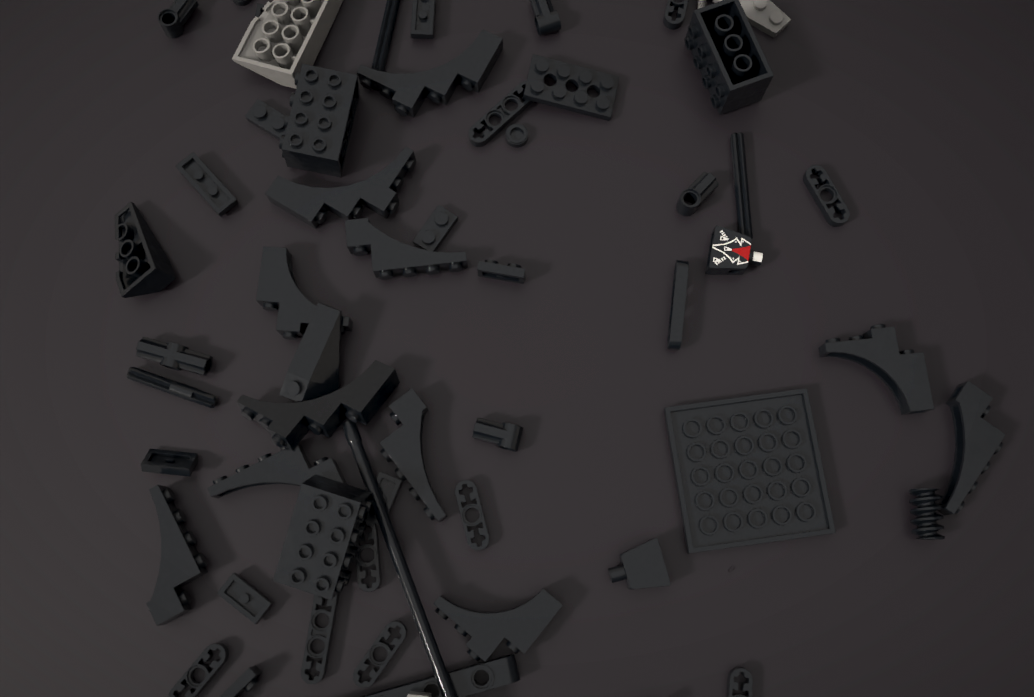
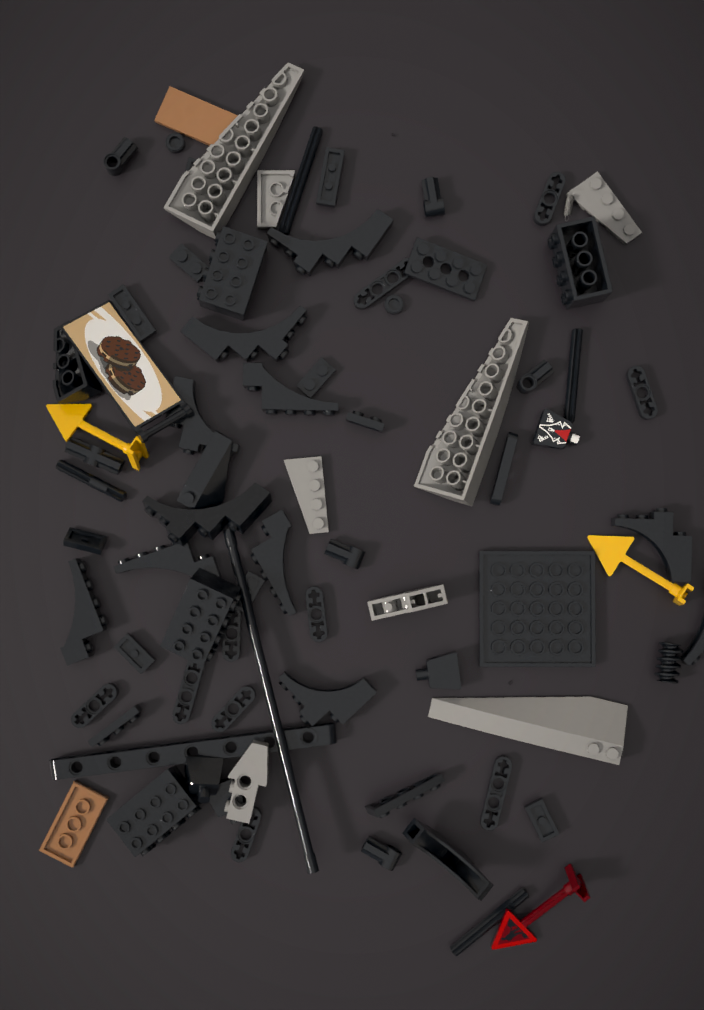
camera: 10 degrees right, 10 degrees up
(143, 313) = (71, 416): none -> yellow piece
(202, 247) = (125, 369): none -> flag
(358, 33) = (272, 194): none -> light grey wing
(443, 359) = (309, 487): none -> light grey wing
(585, 481) = (407, 602): none -> light grey brick
(625, 287) = (463, 447): none -> light grey wedge
(807, 612) = (566, 724): none -> light grey wedge
(828, 386) = (612, 551): none -> yellow piece

